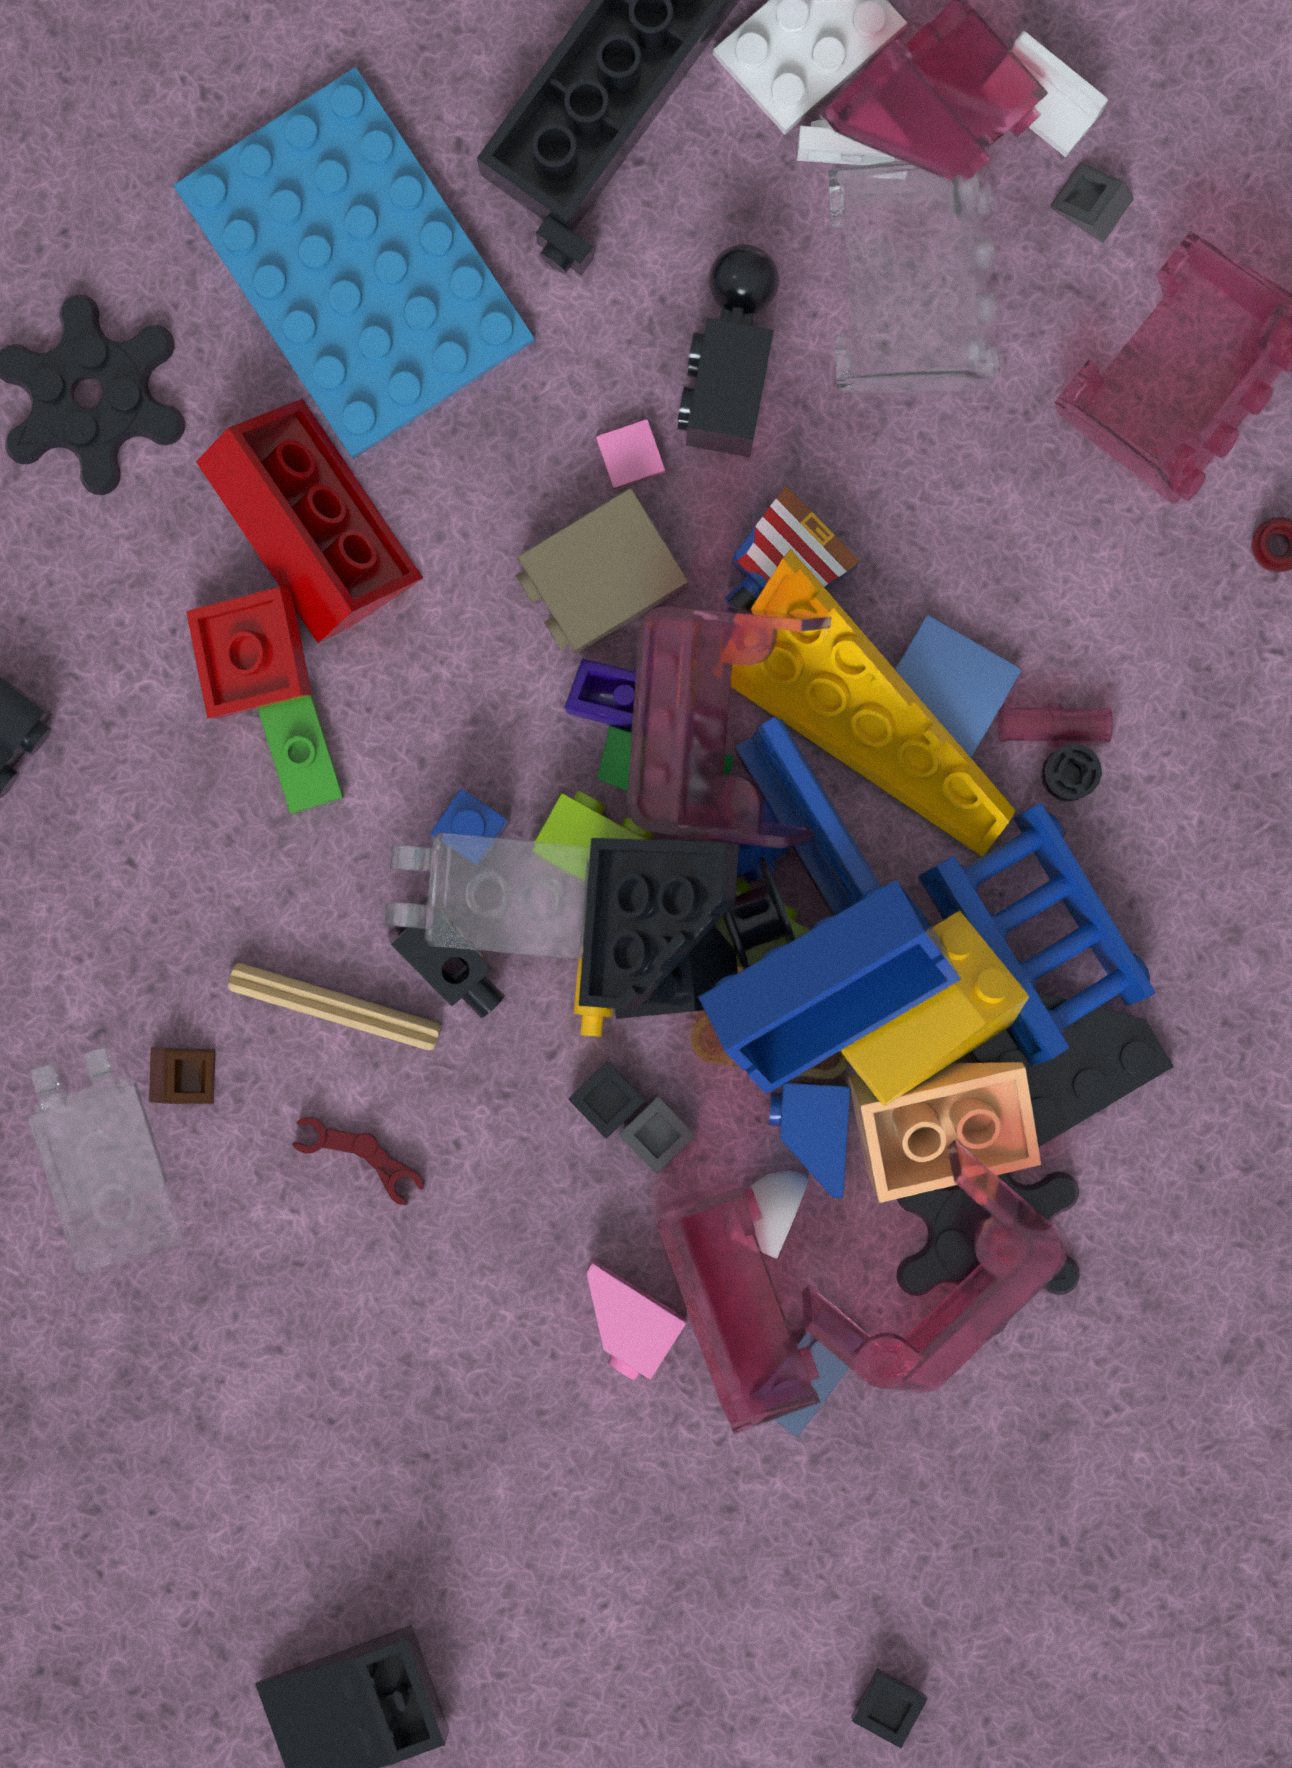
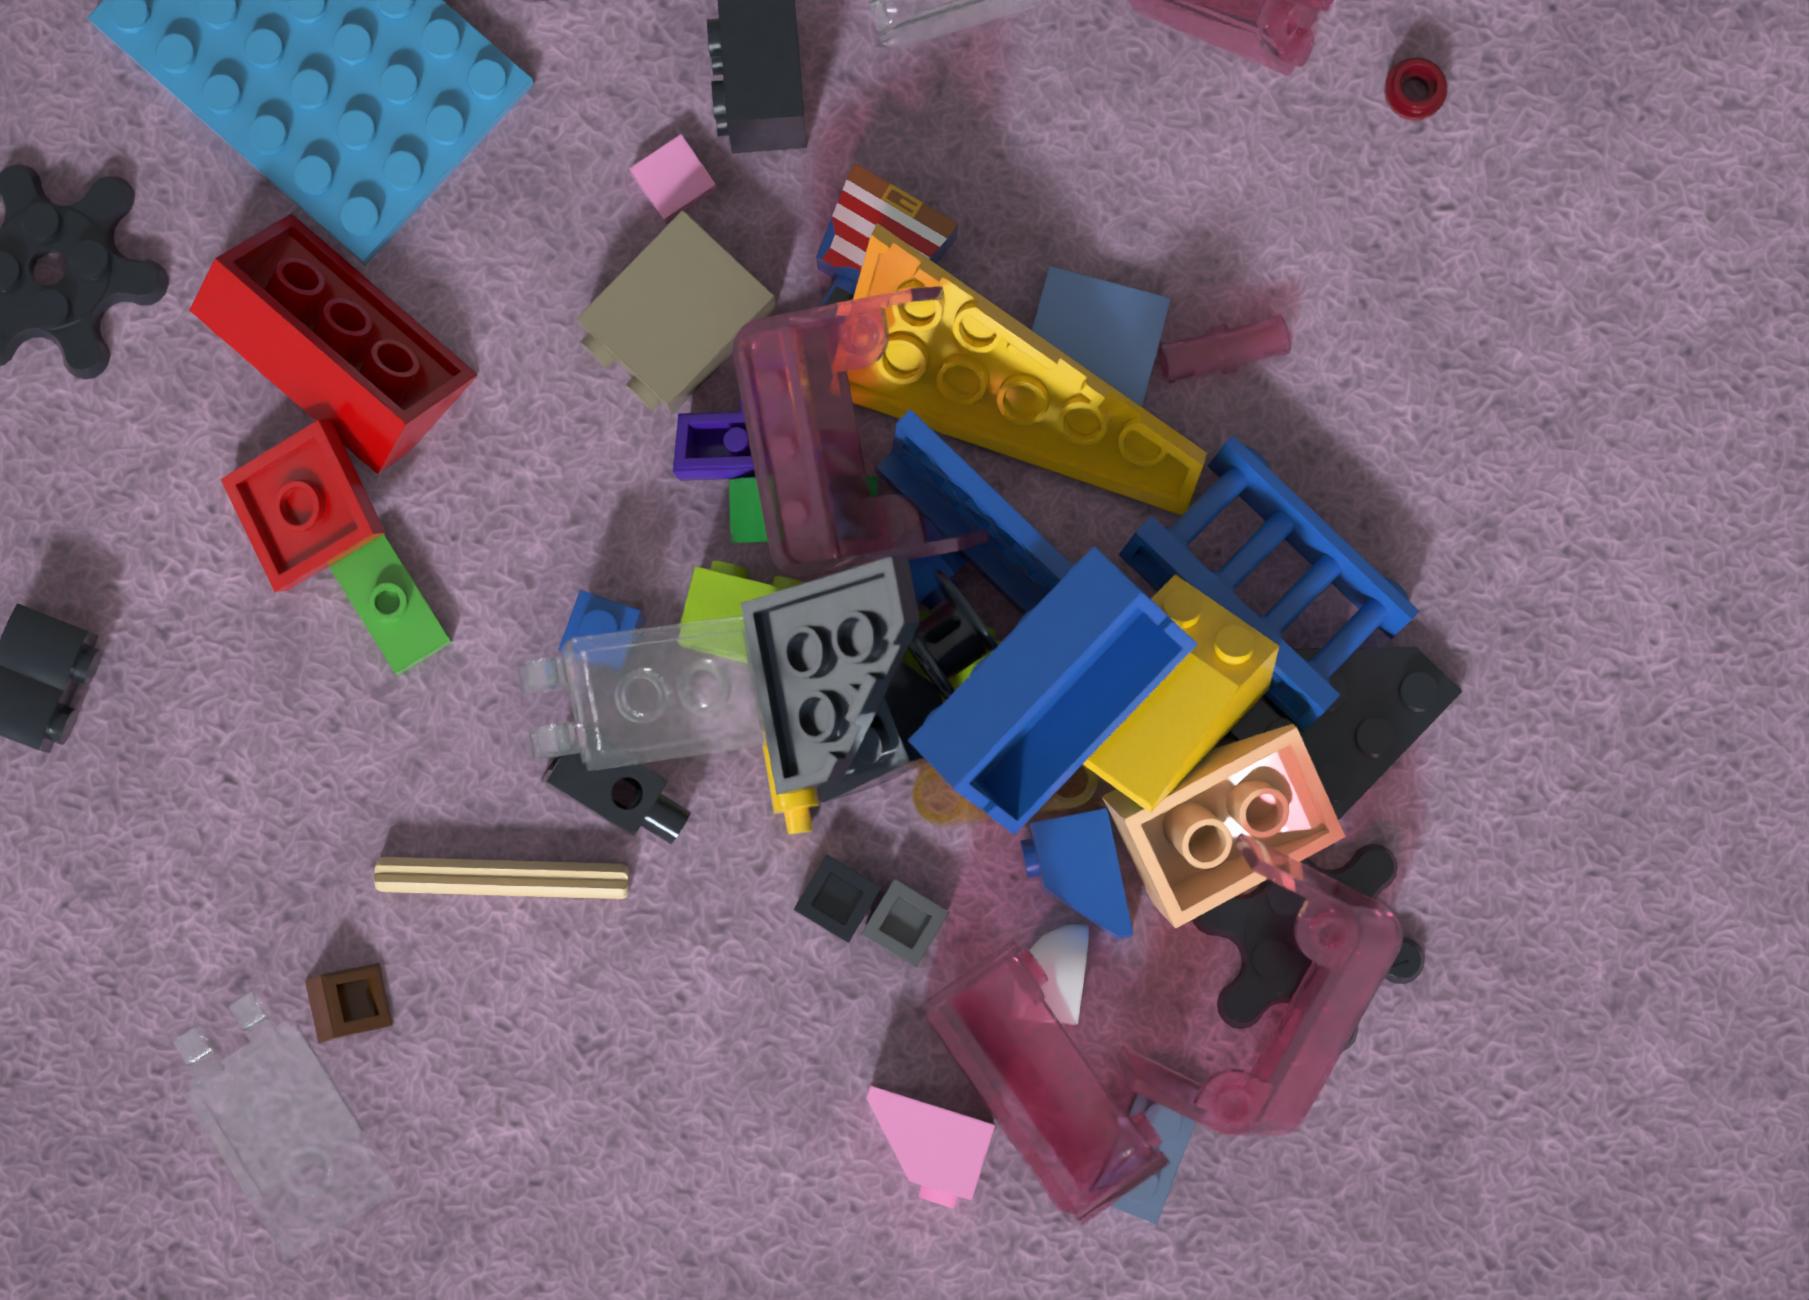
camera: 20 degrees left, 5 degrees down
(366, 1147) = (576, 1027): dark red piece -> none
(1061, 776) = (1248, 404): black wheel -> none

